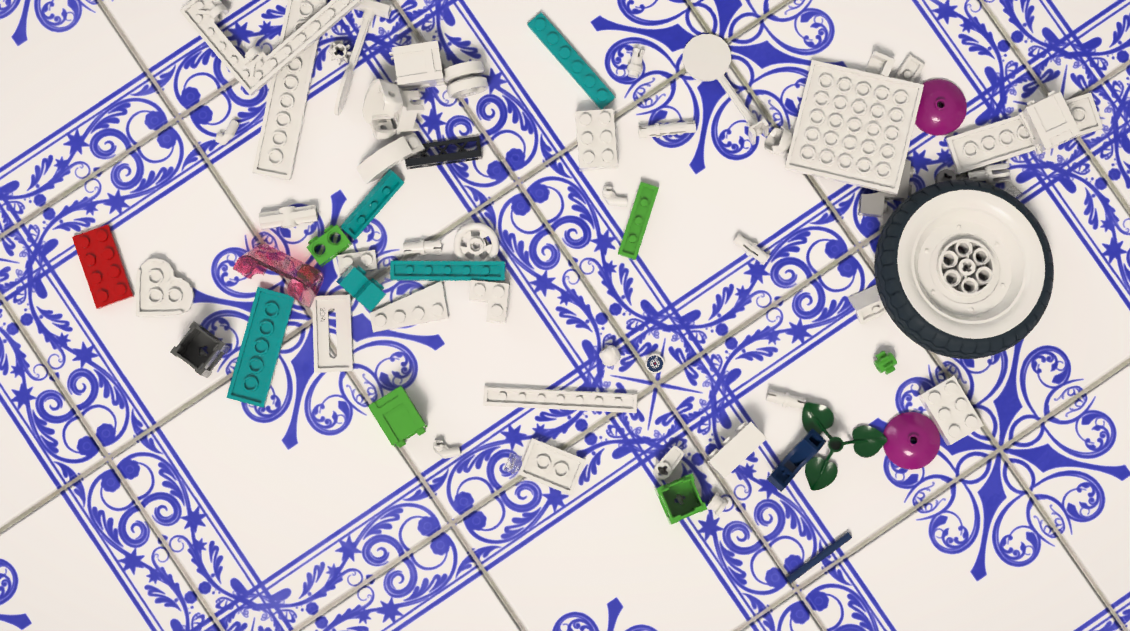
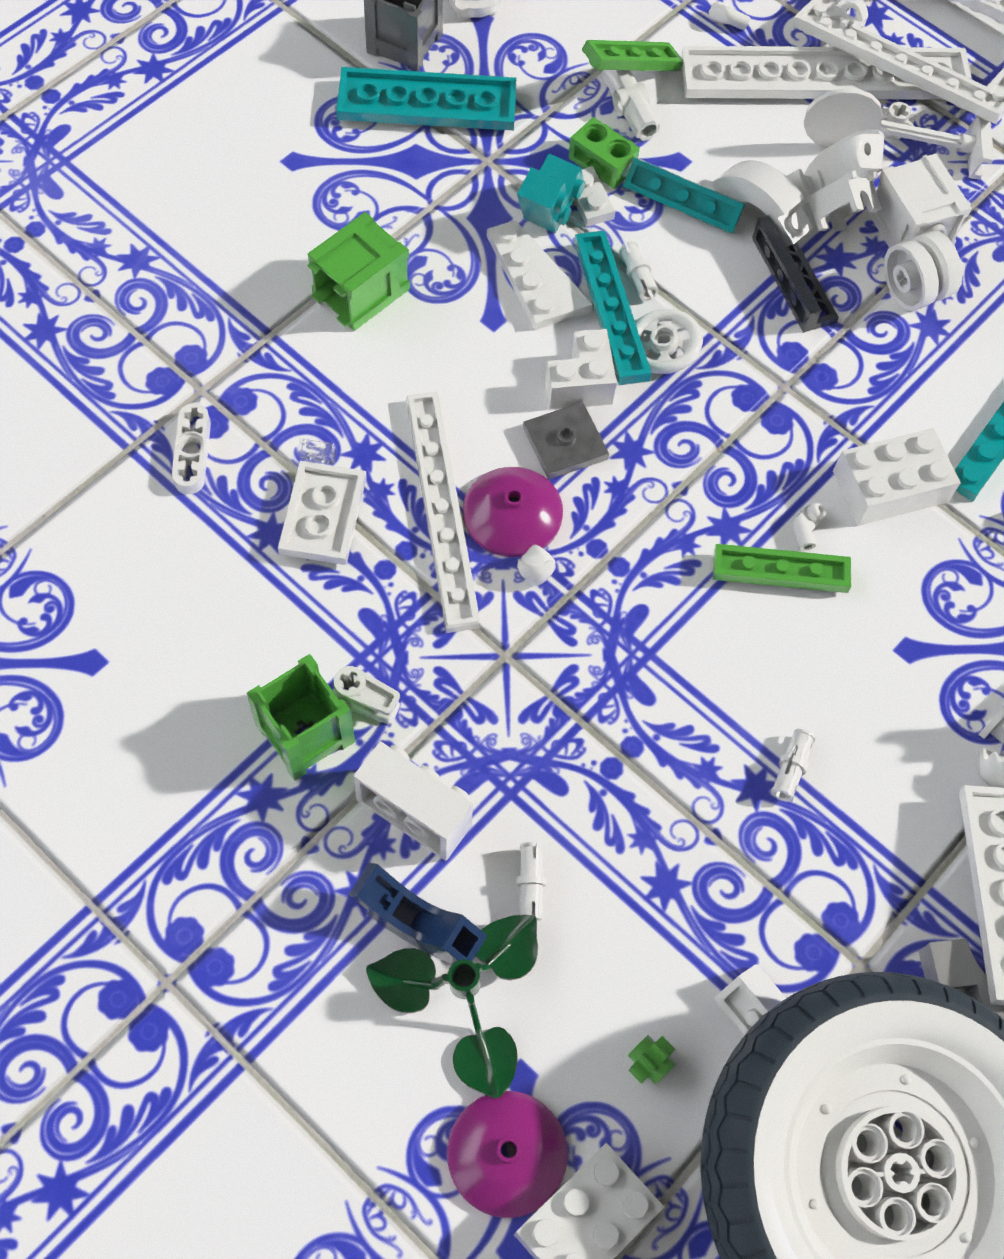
camera: 75 degrees right, 20 degrees down
(263, 209) = (632, 55): none -> bright green plate
(304, 279) = (545, 95): clear pink windscreen -> none
(320, 307) = (467, 169): white piece -> none
(444, 451) = (319, 355): white arm -> none
(478, 535) = (198, 460): none -> white beam
(530, 319) = (565, 440): none -> flat silver plate
(567, 374) = (510, 526): none -> magenta dish
(654, 363) = (540, 643): tile -> none
(666, 129) = (957, 591): white pin -> none
(717, 504) = (306, 794): white wheel -> none
(819, 557) = (235, 1012): dark blue bar -> none

